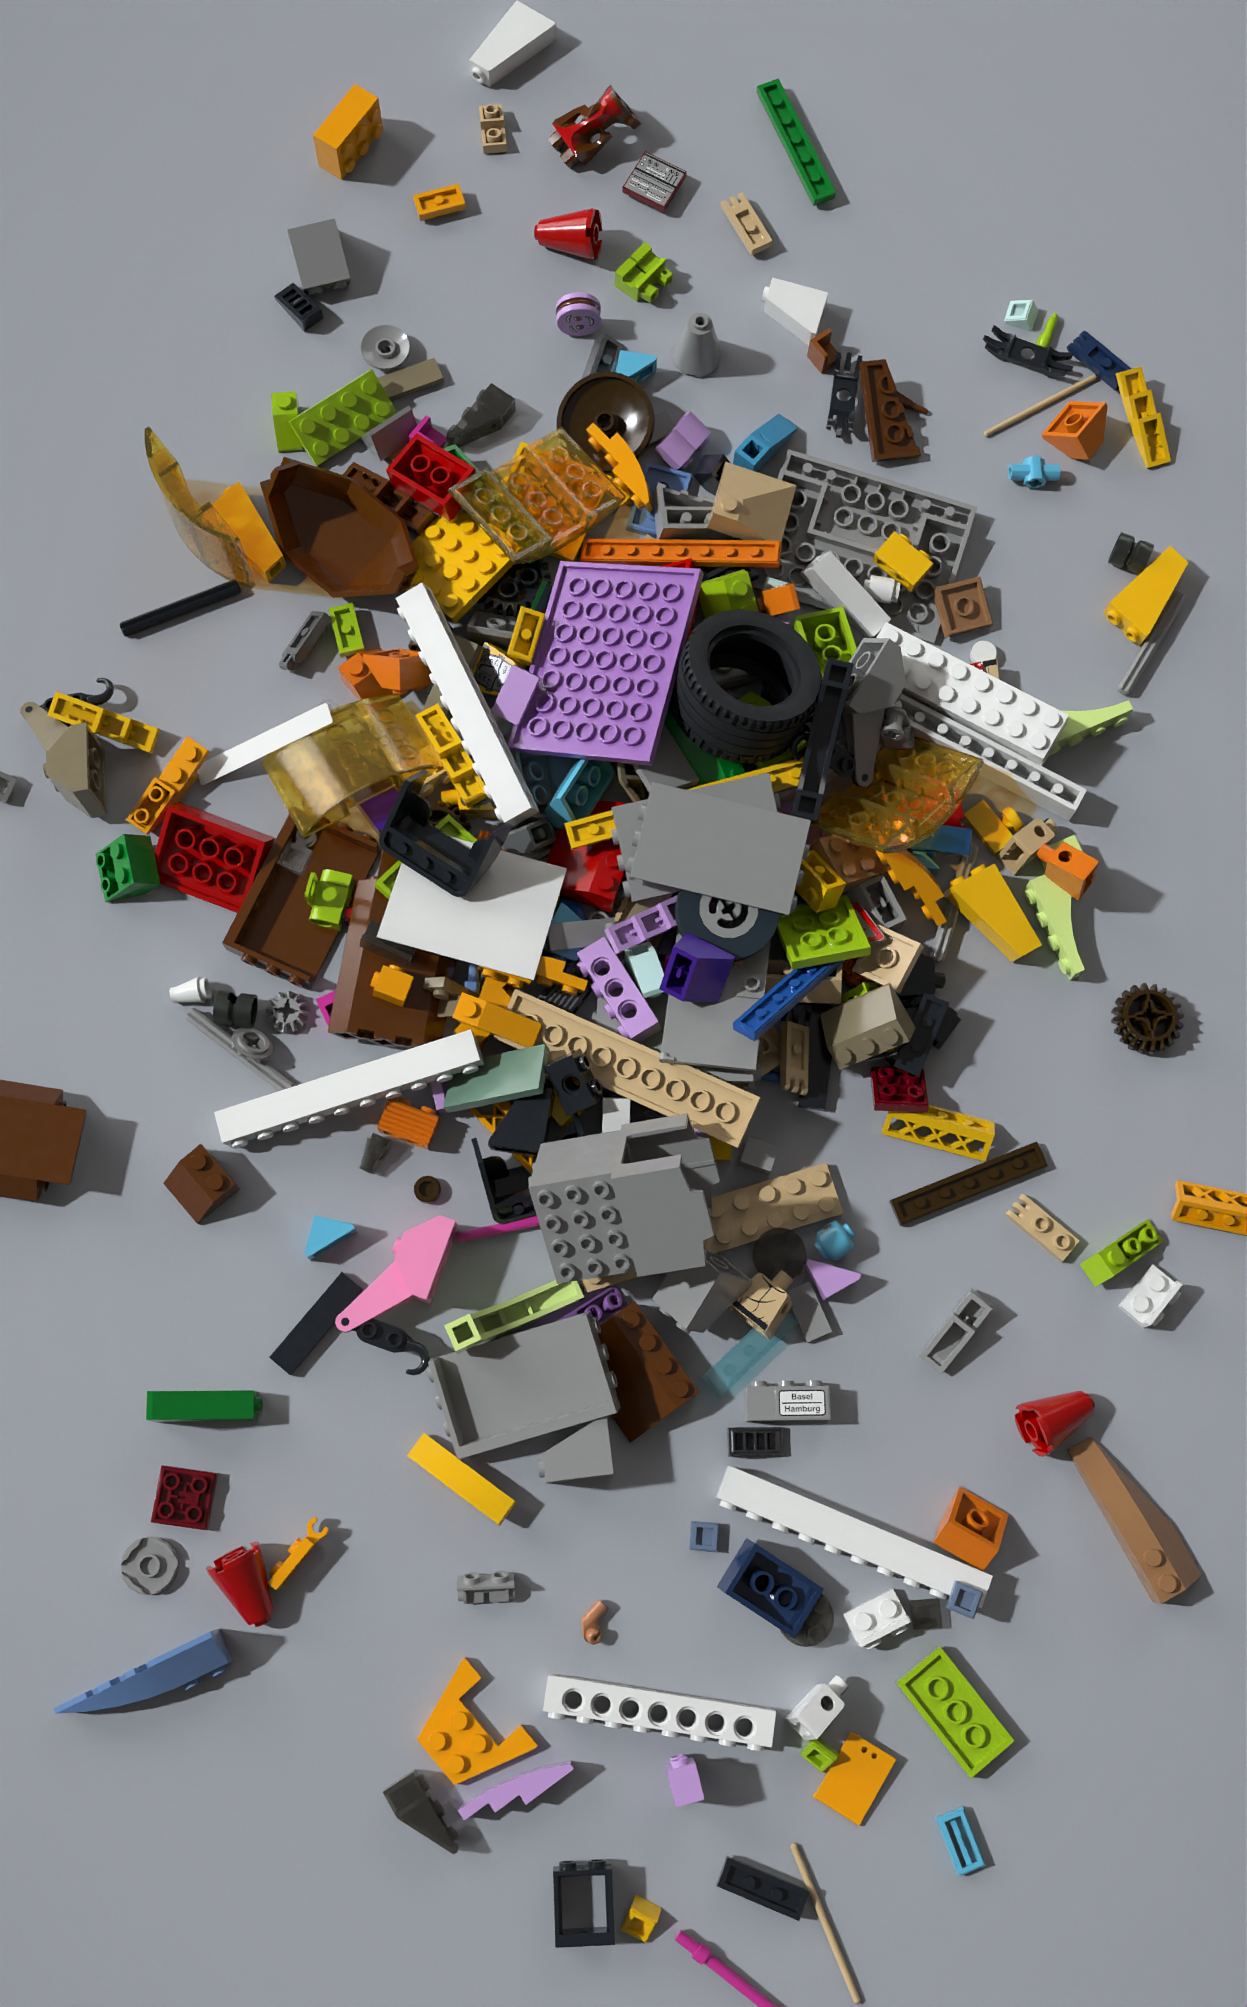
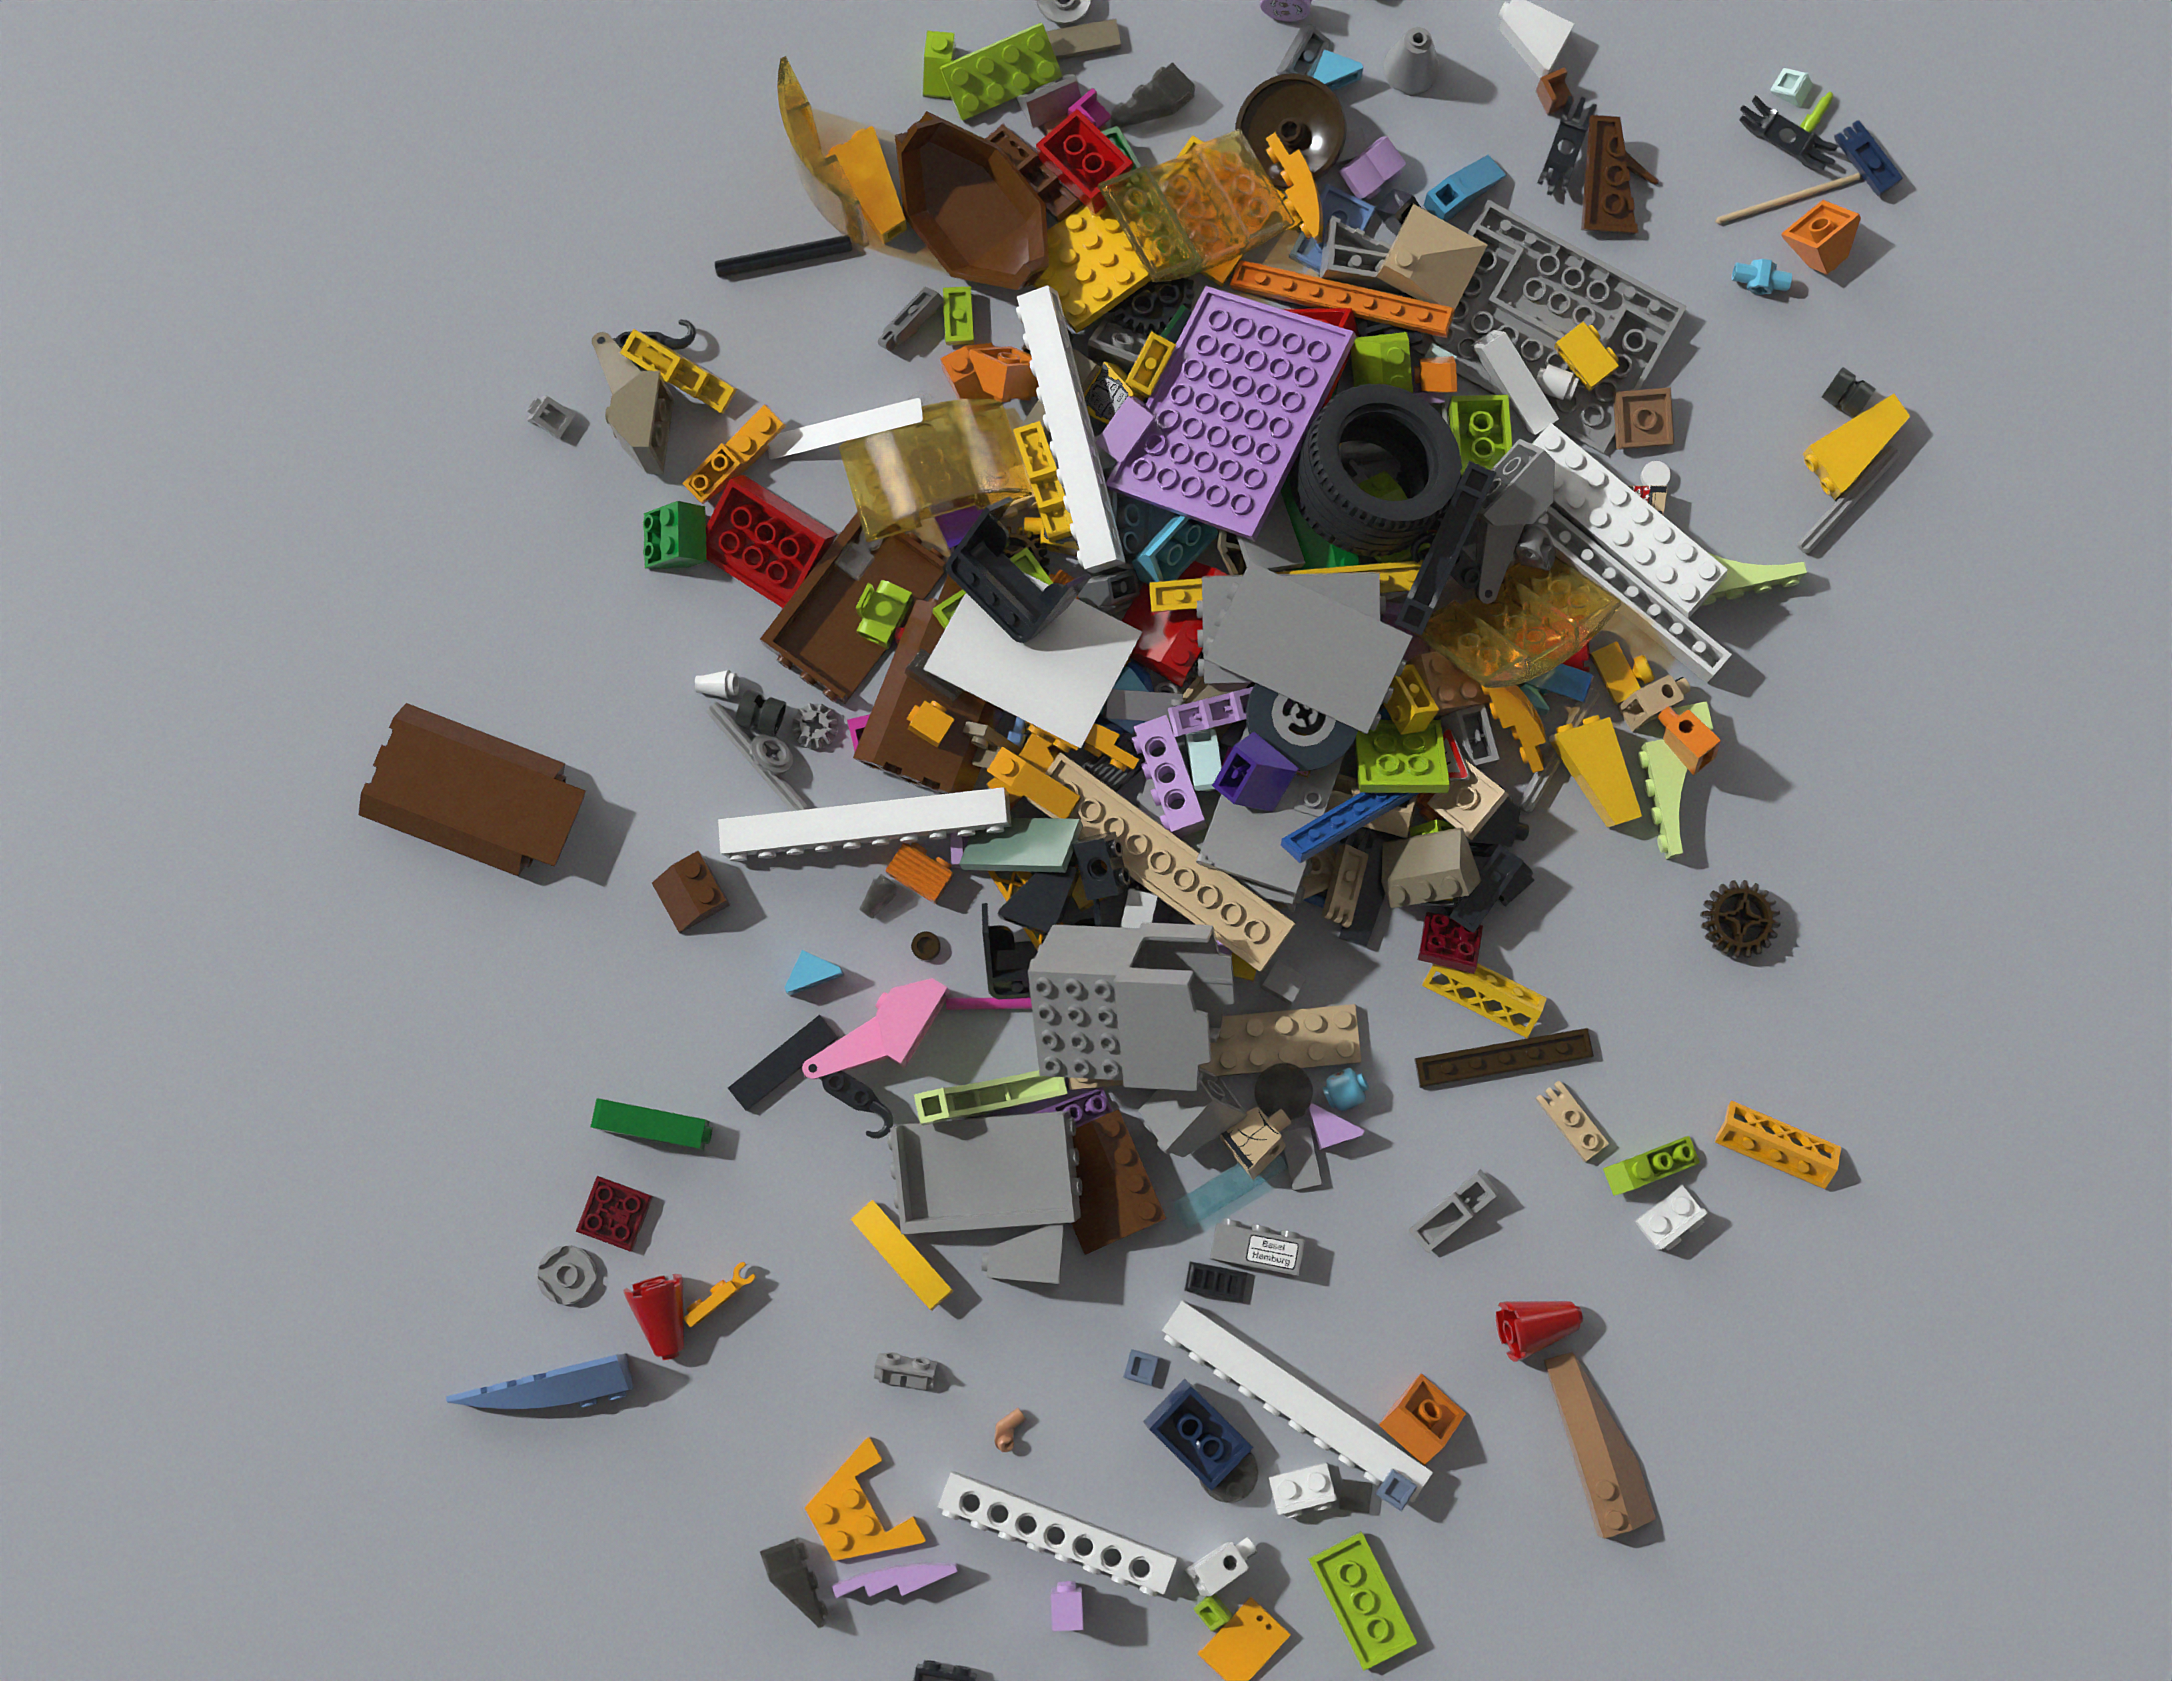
camera: 20 degrees right, 5 degrees up
(1142, 417) = (1902, 235): yellow slope -> none

